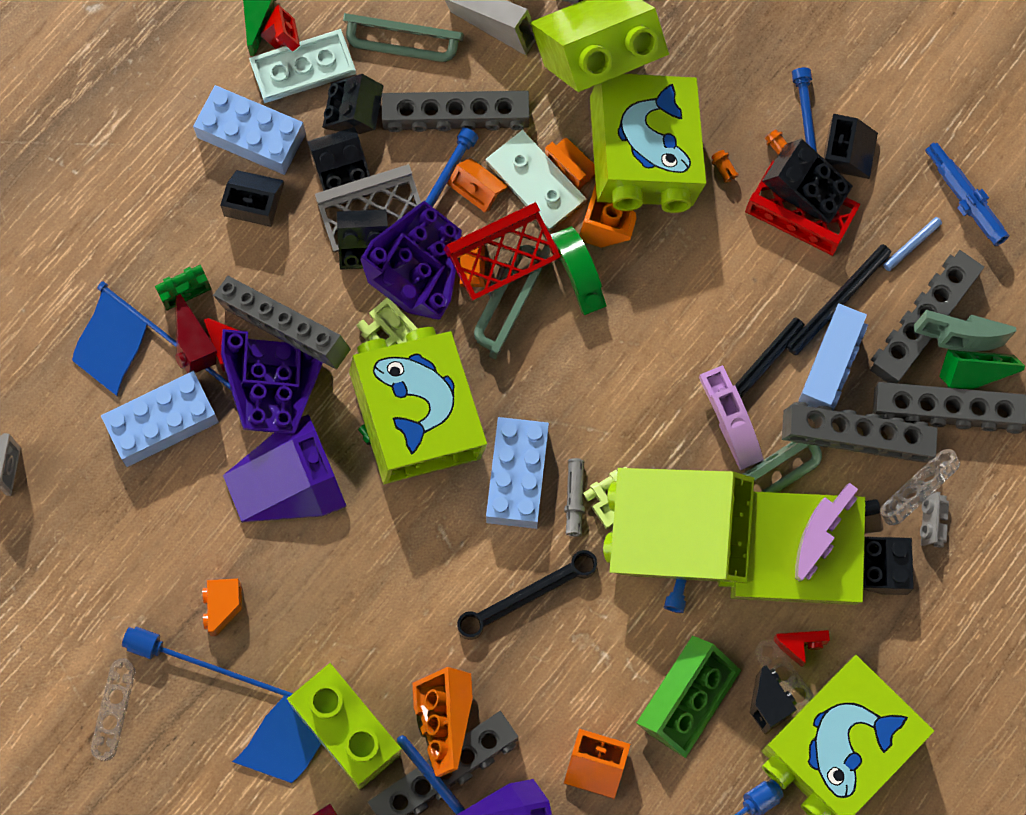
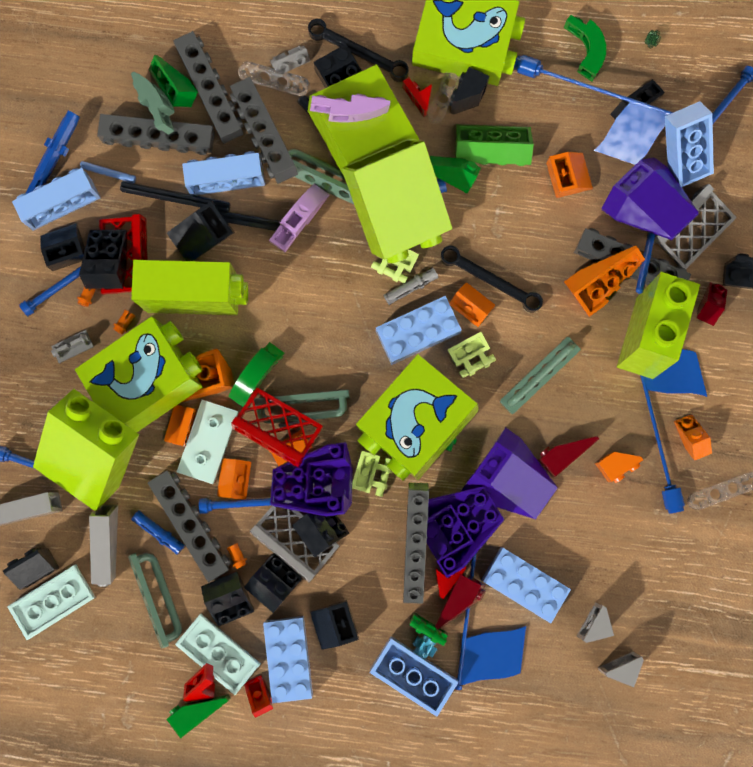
camera: 120 degrees left, 10 degrees up
(62, 465) = (596, 625): none -> light grey slope
(145, 243) = (413, 676): none -> light blue brick
(164, 269) = (424, 647): none -> medium azure gear
(196, 711) = (694, 437): none -> orange slope
(232, 78) = (258, 696): none -> red slope
(273, 548) = (561, 456): none -> dark red slope
(388, 633) = (540, 375): none -> sand green piece
(389, 140) = (237, 556): none -> orange pin
(460, 517) = (469, 349): none -> yellowish green plate
(472, 75) = (159, 533): none -> blue pin
(511, 555) = (471, 304): none -> orange panel
(685, 621) = (455, 171): none -> green slope
(715, 241) = (188, 287): none -> lime brick
(730, 99) = (72, 346): none -> light grey hinge
(778, 301) = (200, 232): none -> black slope
(901, 607) = (358, 50): none -> black piece
(908, 167) = (56, 199): none -> light blue brick

